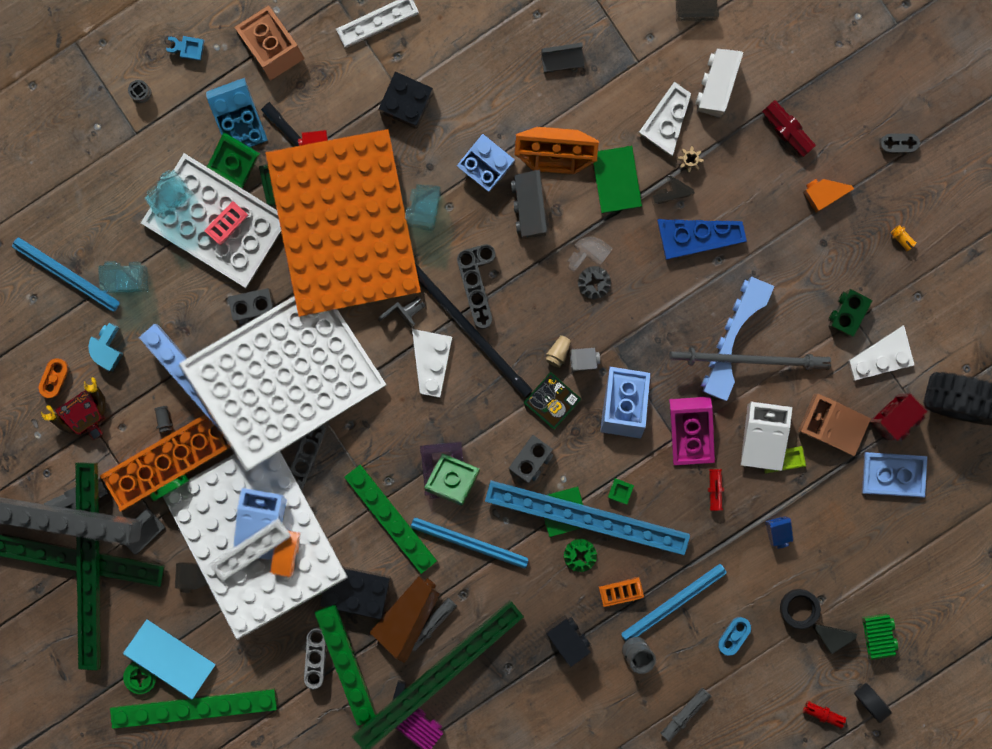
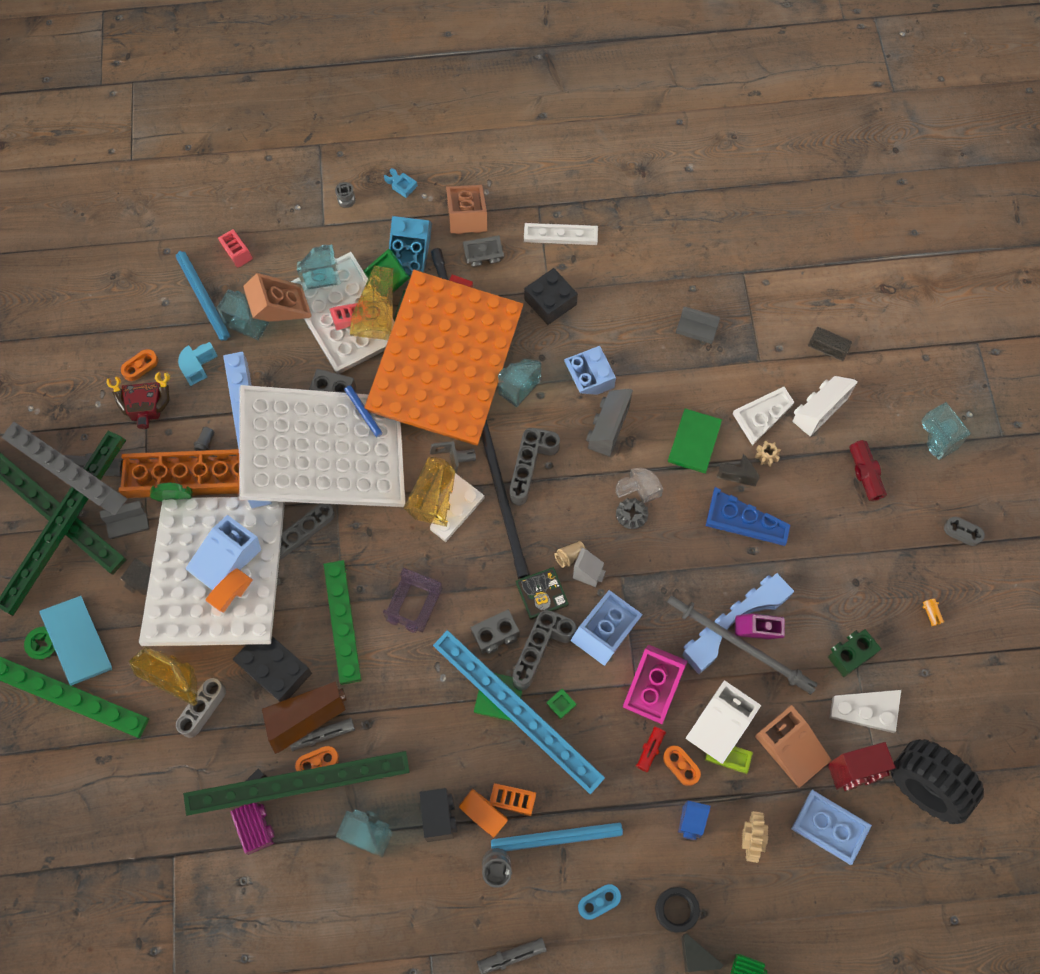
camera: 30 degrees right, 20 degrees down
(76, 212) = (235, 249): none -> coral slope
(149, 249) = (276, 299): none -> nougat slope
(247, 207) = (375, 306): none -> clear yellow wedge
(250, 550) = (200, 570): white tile -> none
(271, 646) = (166, 673): none -> clear yellow wedge
(299, 319) = (364, 412): none -> blue bar
(313, 83) = (483, 250): none -> dark grey bracket
(345, 664) = (222, 725): green plate -> none
(405, 361) = (432, 492): none -> clear yellow wedge
(440, 647) = (317, 758): none -> orange plate
(452, 479) = (414, 611): tile -> none
(469, 543) = (399, 679): dark azure axle -> none
(517, 686) = (364, 834): none -> clear light blue slope
(556, 149) = (654, 390): orange wedge -> none
(577, 457) = (537, 650): none -> dark grey beam
(579, 565) = (501, 749): green gear -> none
(603, 617) = (483, 813): none -> orange slope
(748, 489) = (682, 765): none -> orange plate
(759, 335) = (760, 626): none -> magenta brick
(825, 192) = (878, 538): orange slope -> none
(836, 519) = (755, 837): none -> tan gear
(841, 56) = (944, 430): none -> clear light blue slope

